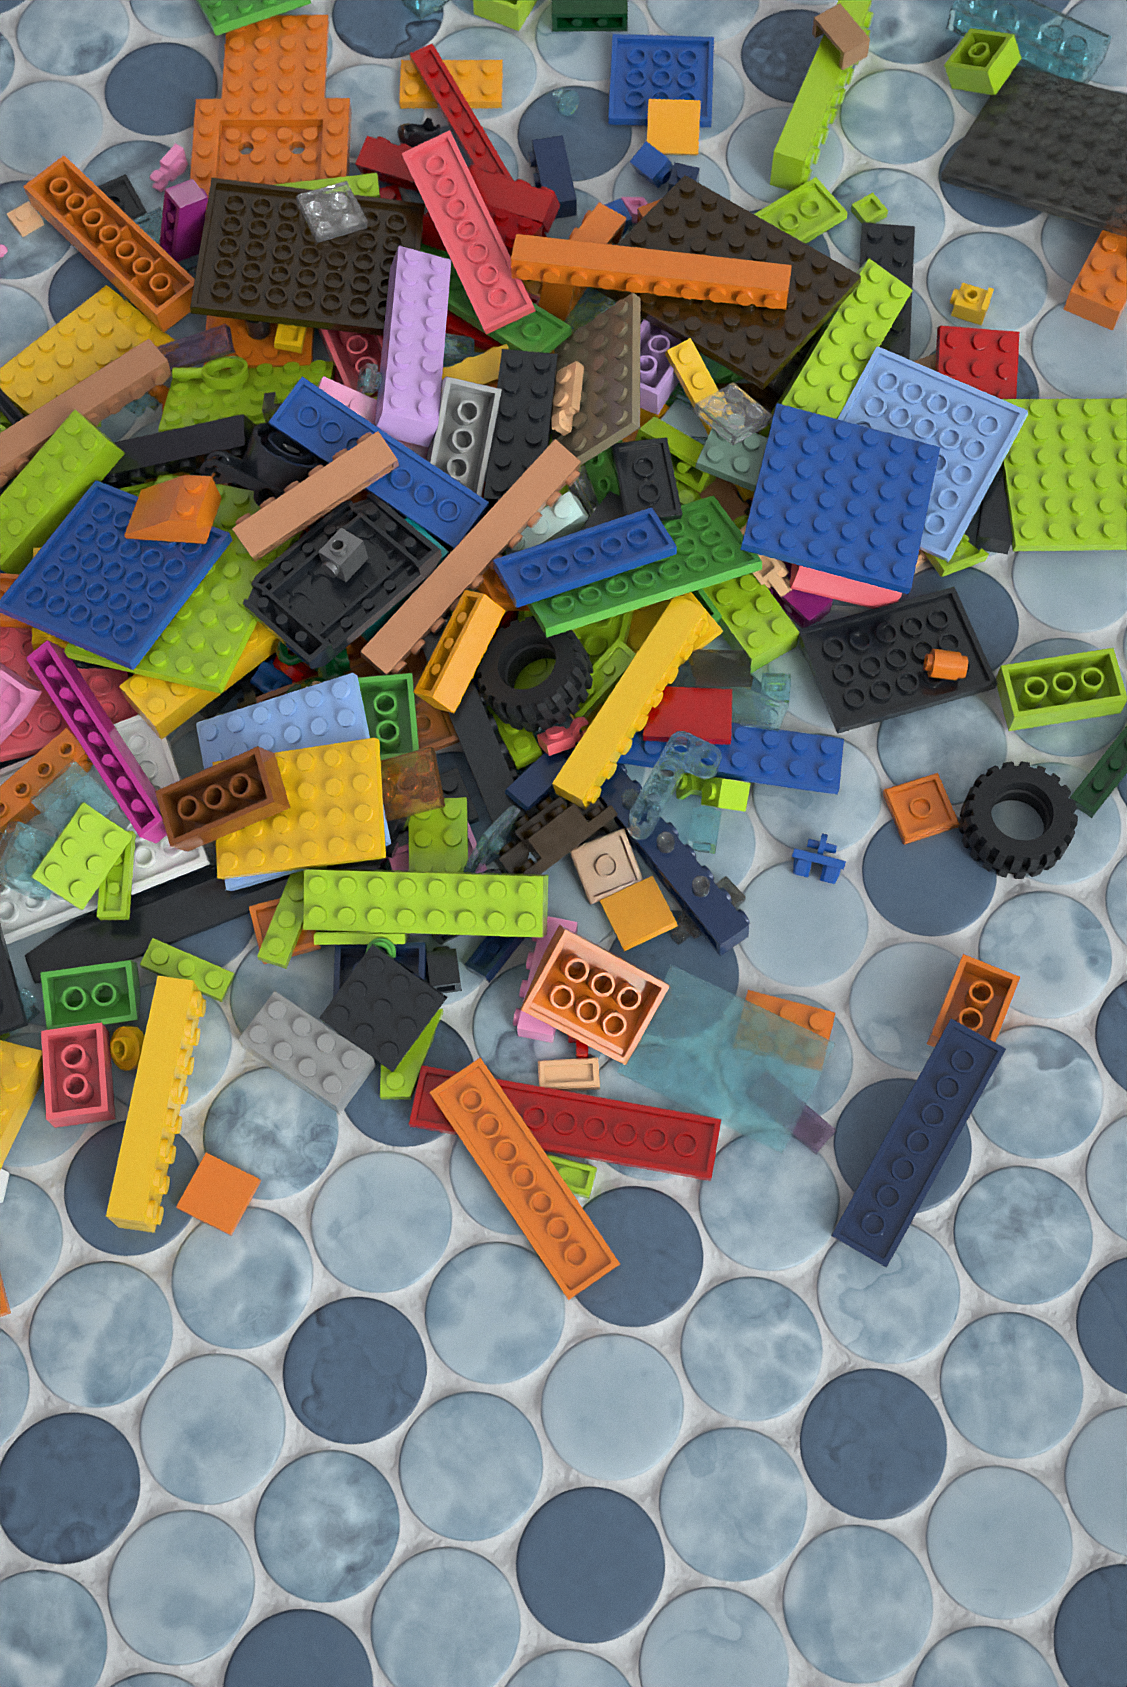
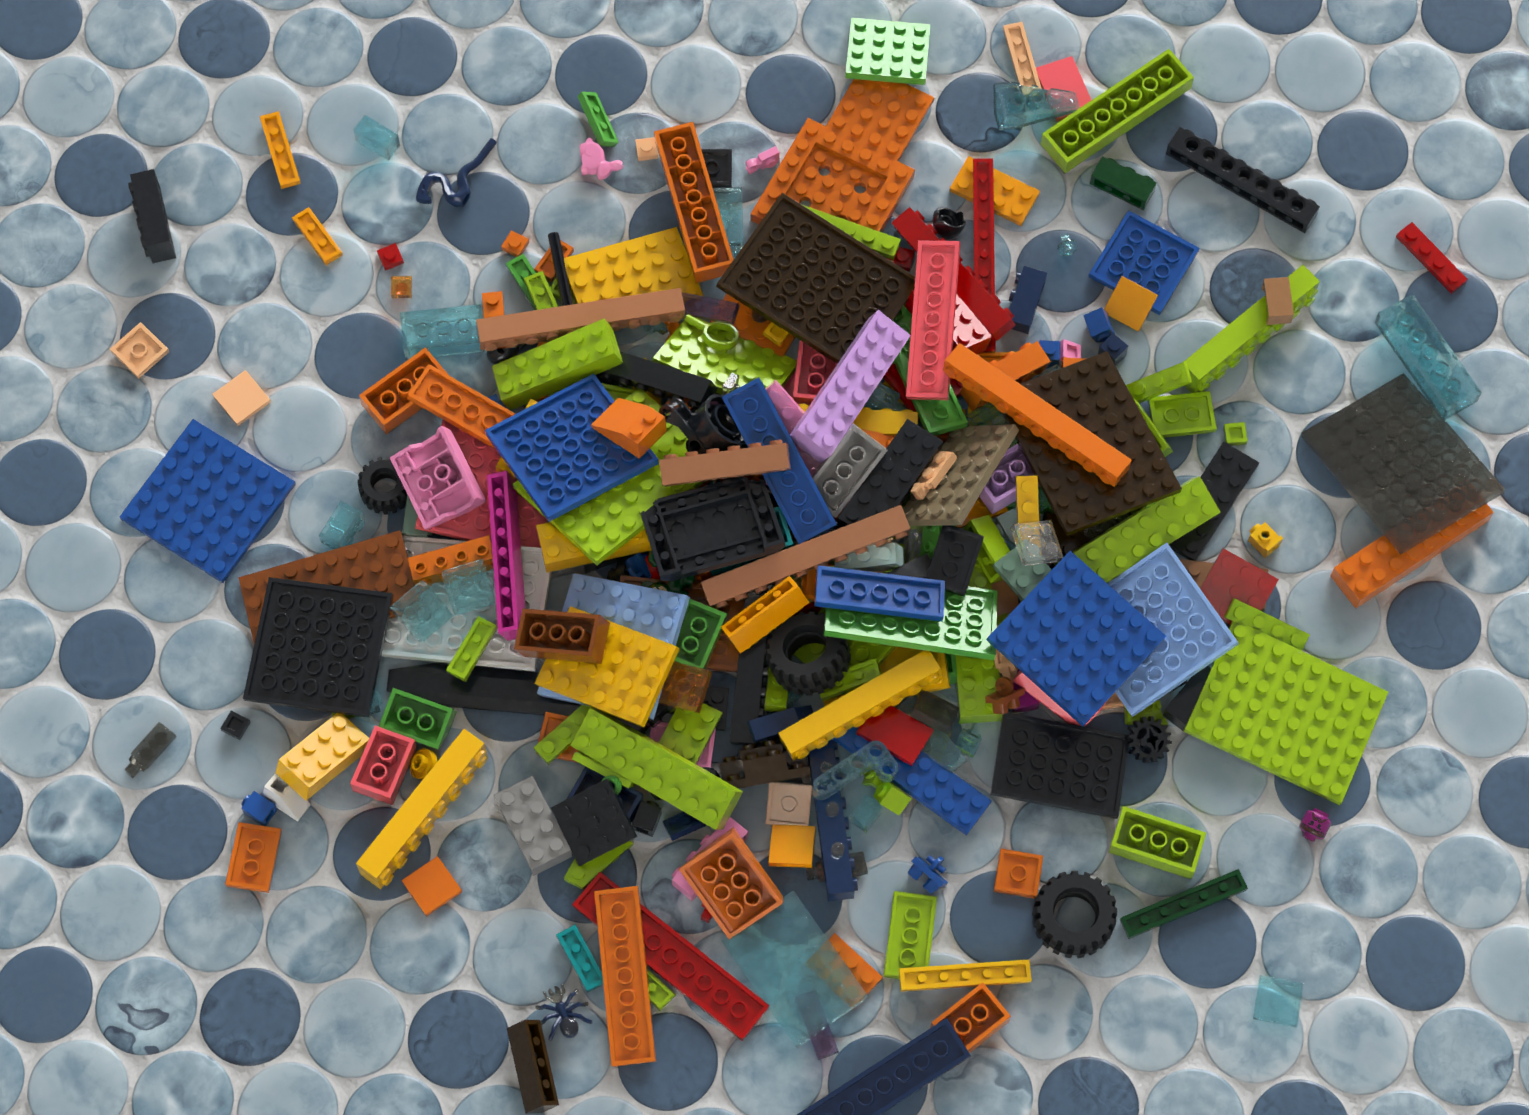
camera: 25 degrees right, 0 degrees up
(81, 856) = (456, 626): lime plate -> none
(175, 963) = (485, 730): lime plate -> none
(183, 220) = (747, 213): magenta brick -> none
(331, 211) = (849, 258): clear plate -> none
(343, 555) = (721, 514): flat silver brick -> none
(369, 379) = (806, 397): clear light blue plate -> none
(456, 1184) = (580, 958): none -> teal plate
(470, 1357) = (532, 1066): none -> dark brown brick
(474, 1267) = (563, 1014): none -> animal
(492, 840) = (721, 750): clear light blue plate -> none
(560, 739) = (802, 705): coral plate -> none
(569, 1074) = (691, 926): light nougat tile -> none
(764, 182) = (1160, 382): none -> lime plate
(793, 609) = (1005, 696): none -> dark orange hips
(839, 948) = (909, 932): none -> lime tile
(932, 959) = (964, 975): none -> yellow plate
(945, 664) = (1087, 786): orange brick -> none
(978, 580) = (1140, 739): none -> black gear
(982, 61) = (1378, 364): lime brick -> none
(1033, 387) = (1250, 616): none -> lime plate

